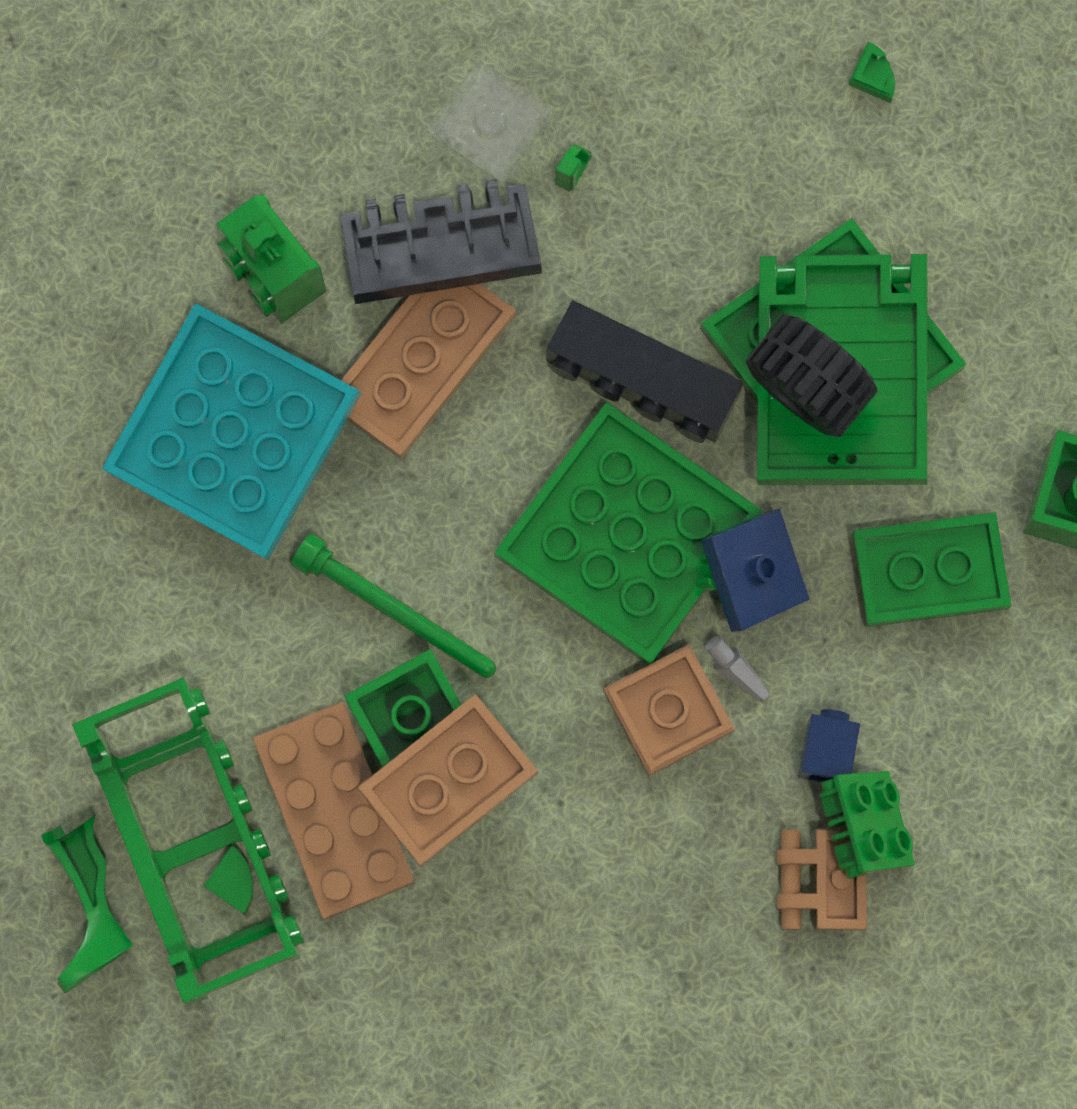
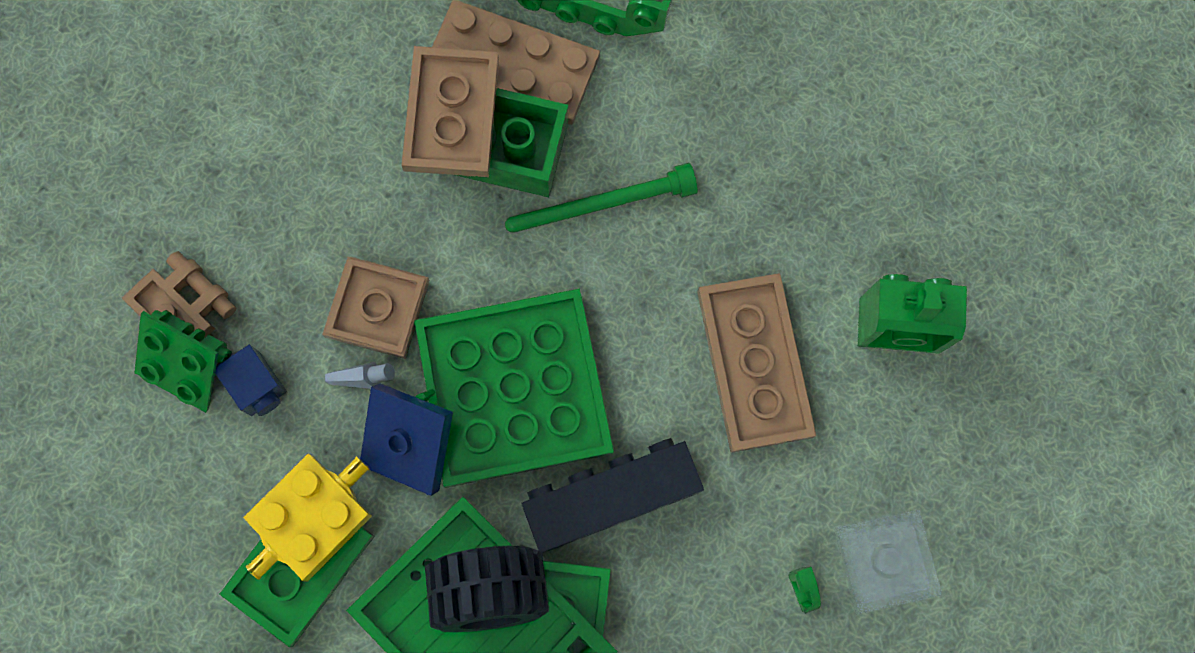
camera: 125 degrees right, 0 degrees up
(232, 431) = (810, 198): teal plate -> none
(441, 245) = (823, 438): black hinge -> none
(888, 588) = (307, 517): none -> yellow plate

